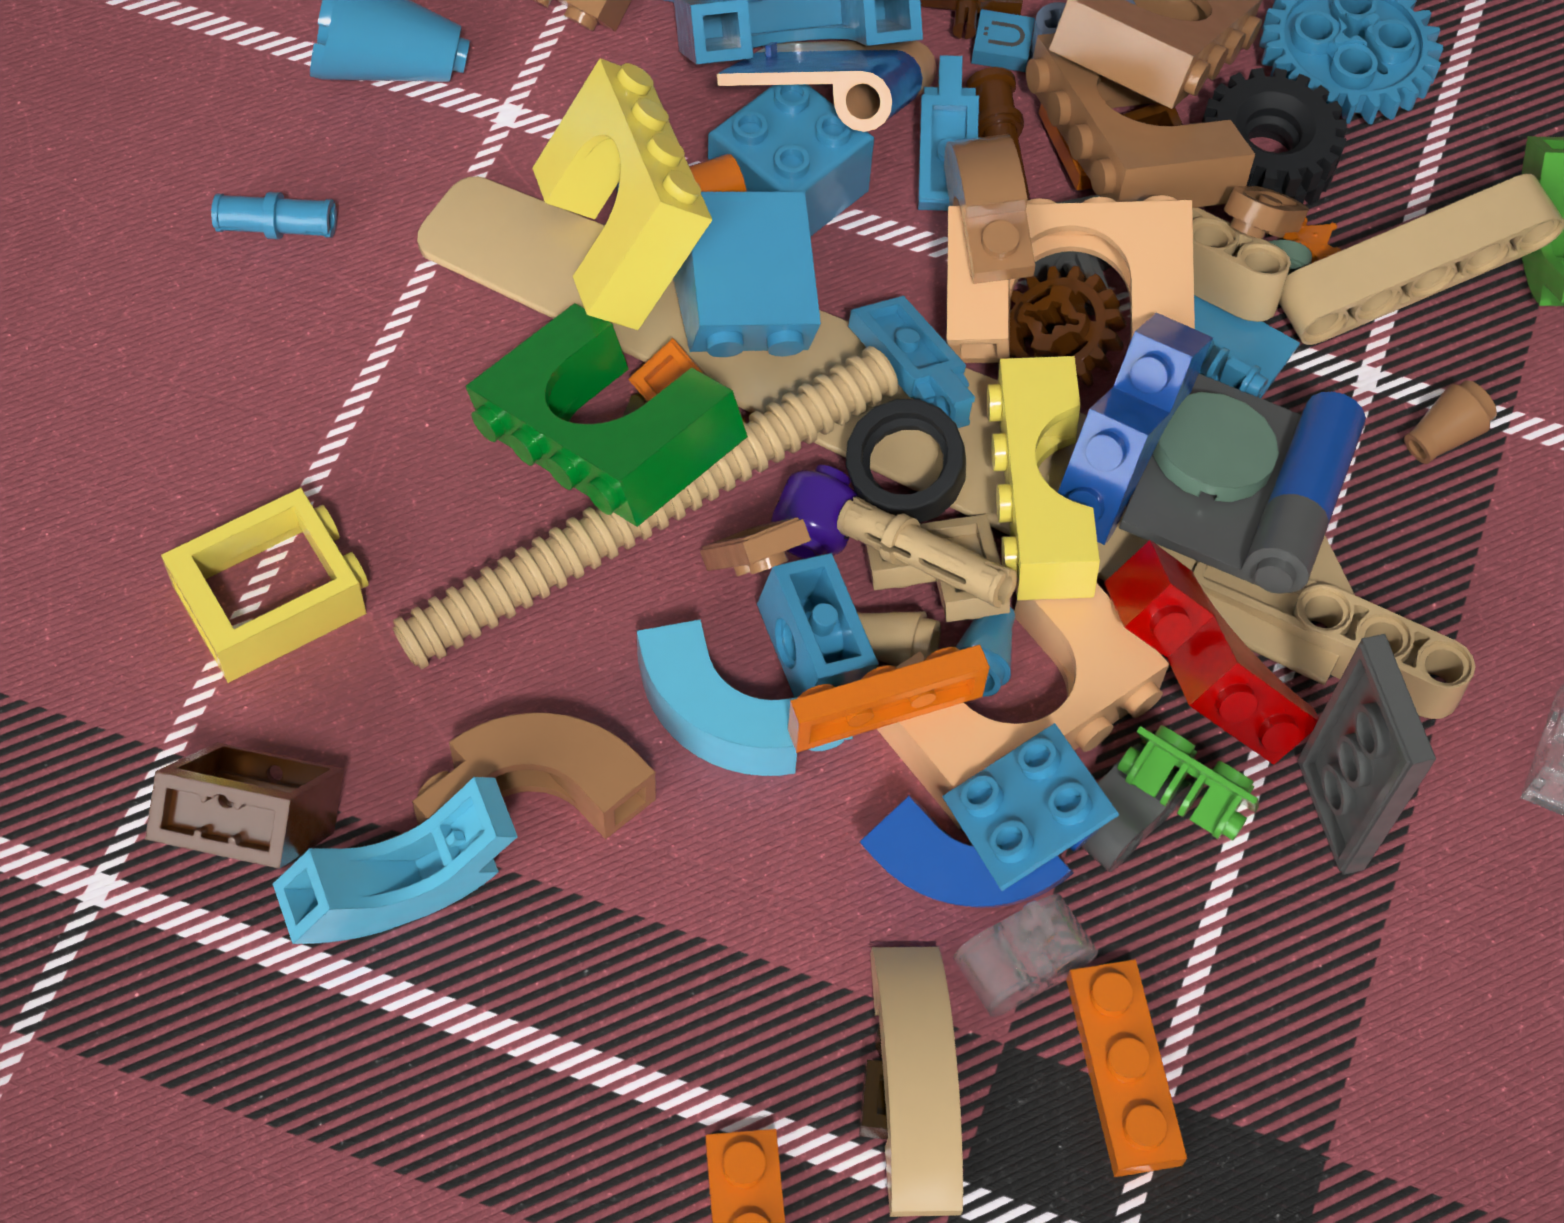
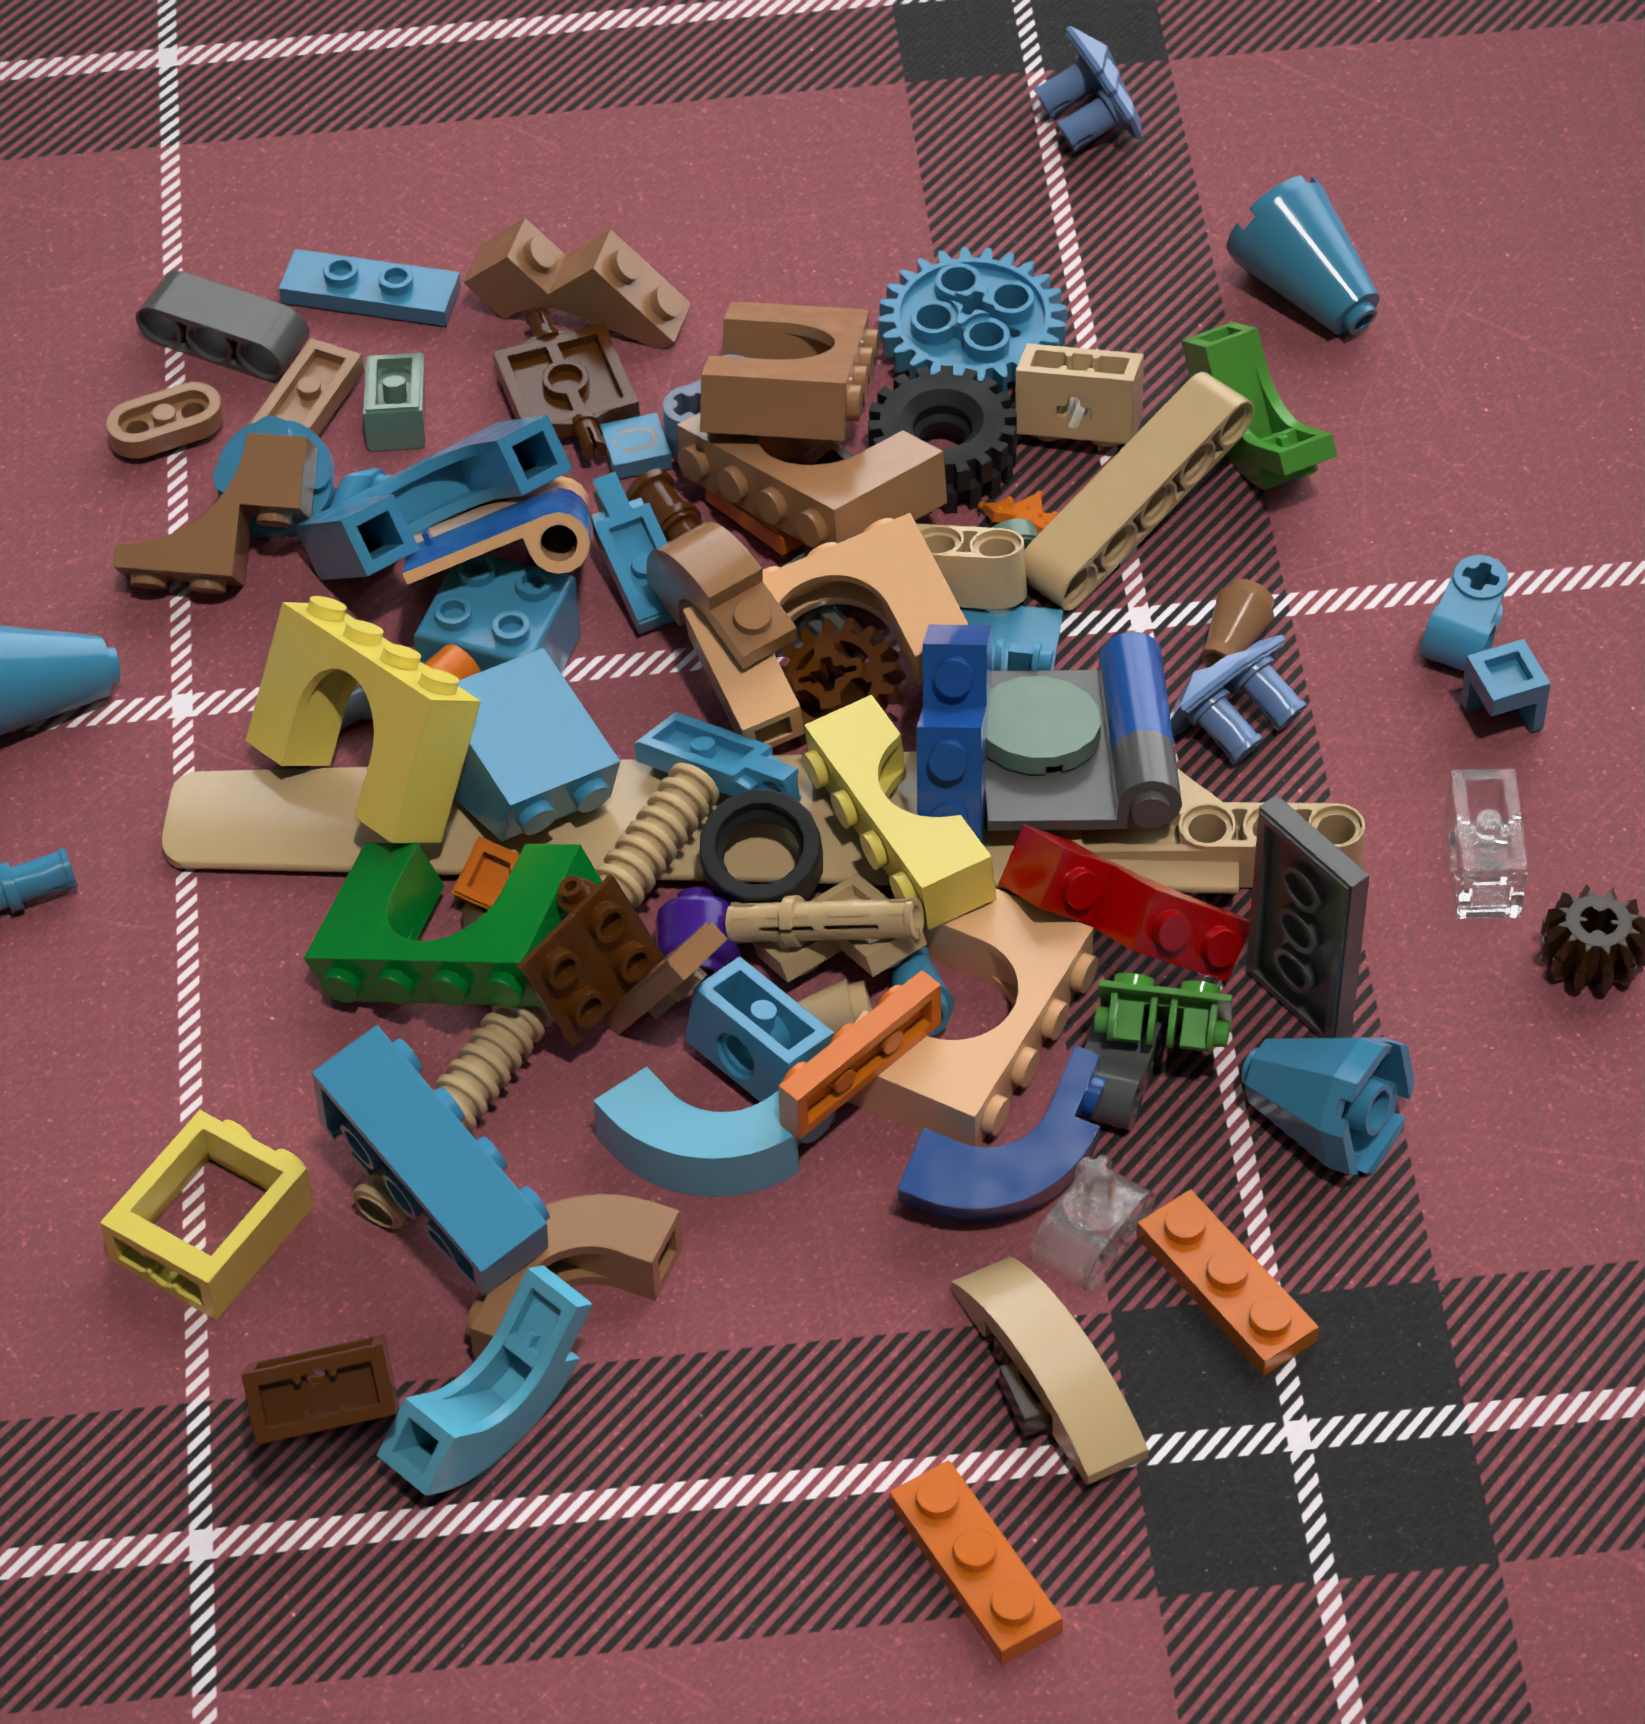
camera: 20 degrees left, 10 degrees down
(449, 632) = (430, 1159): none -> dark azure wedge
(693, 496) = (589, 955): none -> reddish brown hinge
(1029, 806) = (1035, 1088): dark azure hinge -> none
(1264, 211) = (974, 503): medium nougat plate -> none
(1313, 929) = (1333, 1095): none -> dark azure cone
(1385, 487) = (1251, 671): none -> medium blue connector
(1412, 149) = (1057, 376): none -> tan brick

